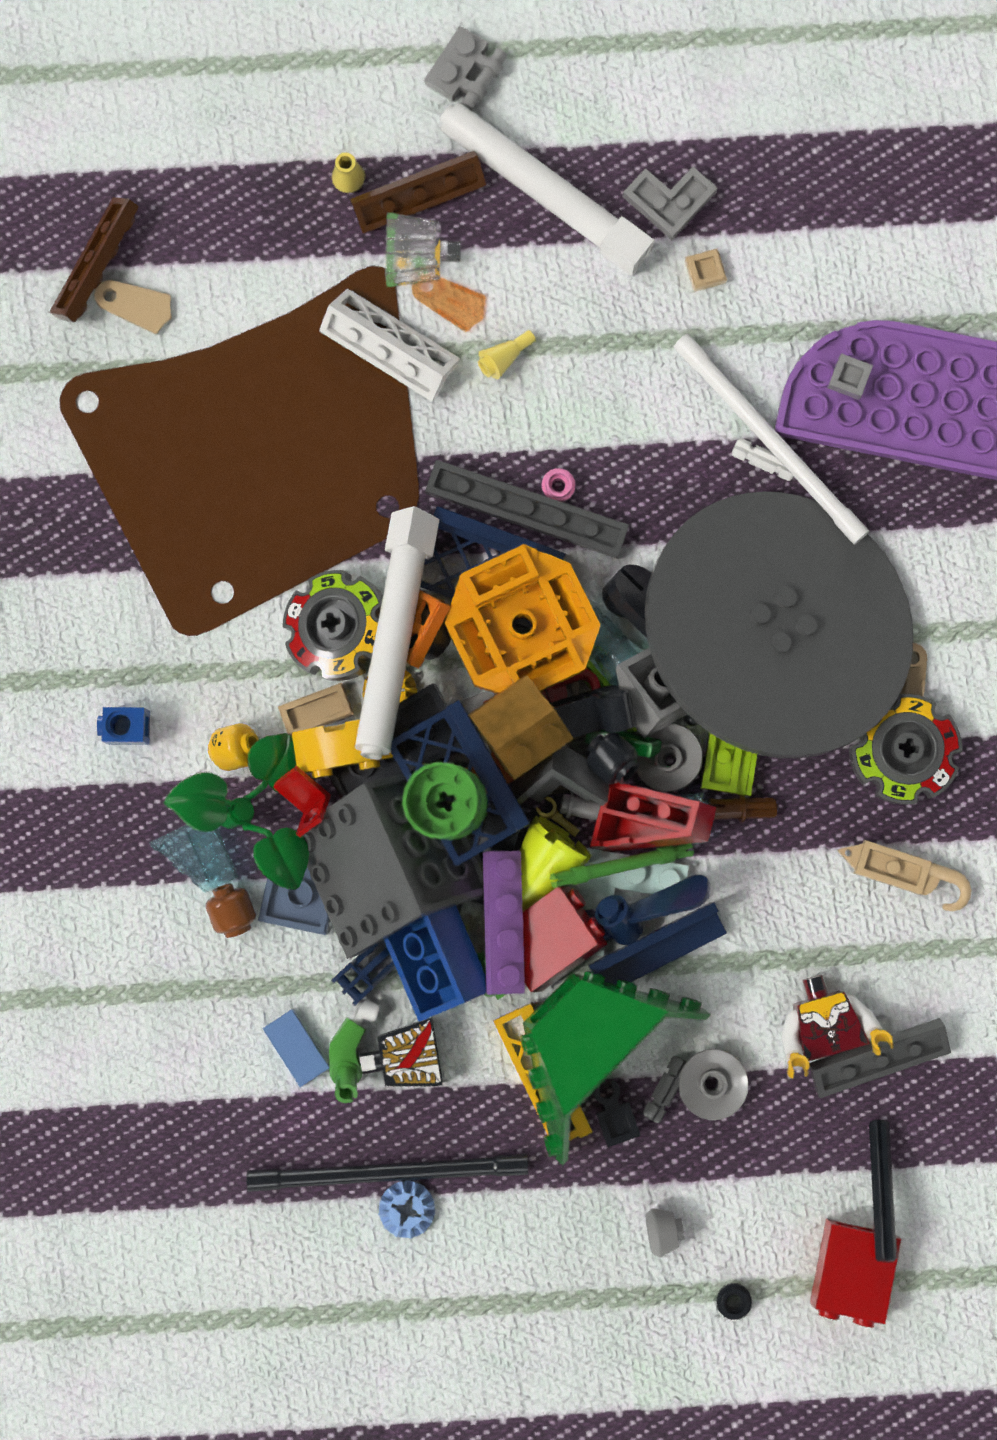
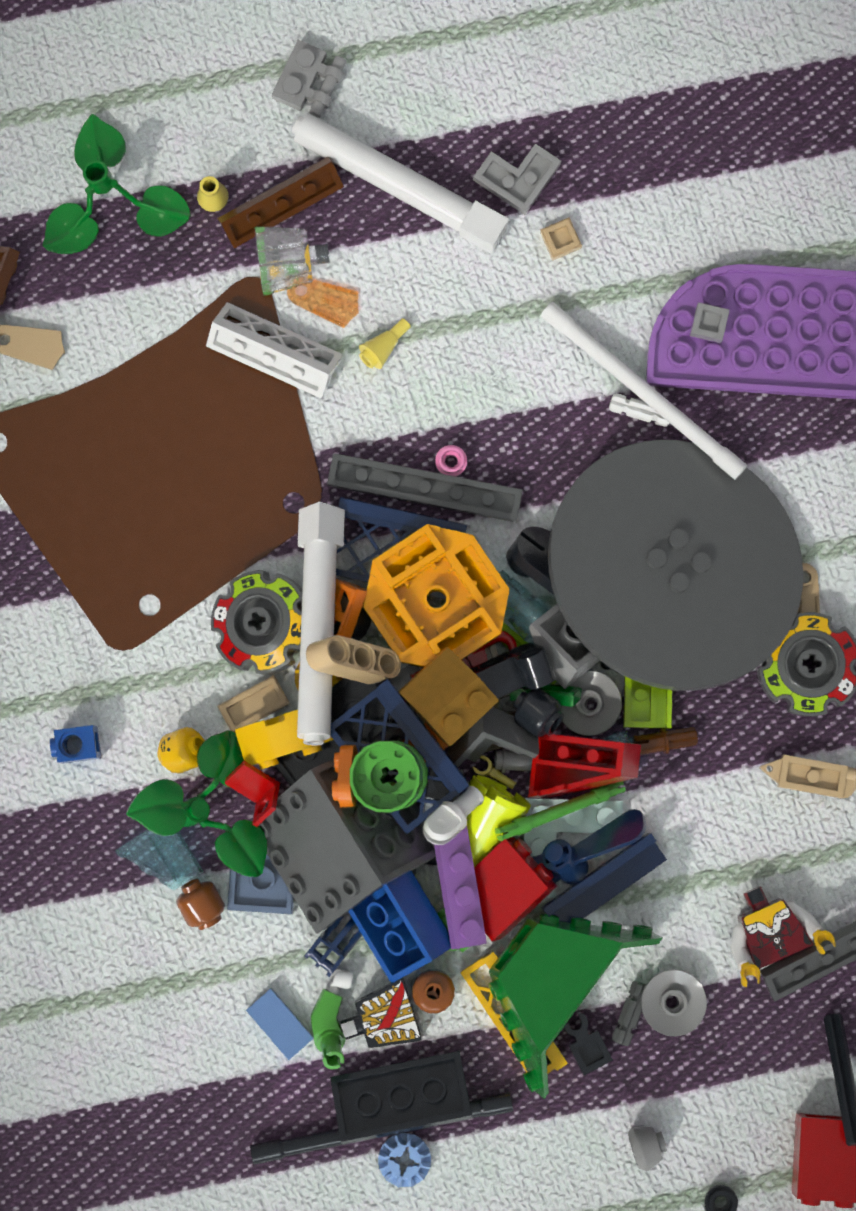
camera: 10 degrees left, 0 degrees up
(237, 111) = (95, 150): none -> green plant
(393, 806) = (341, 787): none -> orange plate
(411, 1143) = (400, 1098): none -> black plate
(425, 675) = (353, 659): none -> tan beam
(466, 1024) = (439, 980): none -> dark orange head
(505, 854) = (451, 817): none -> white arm

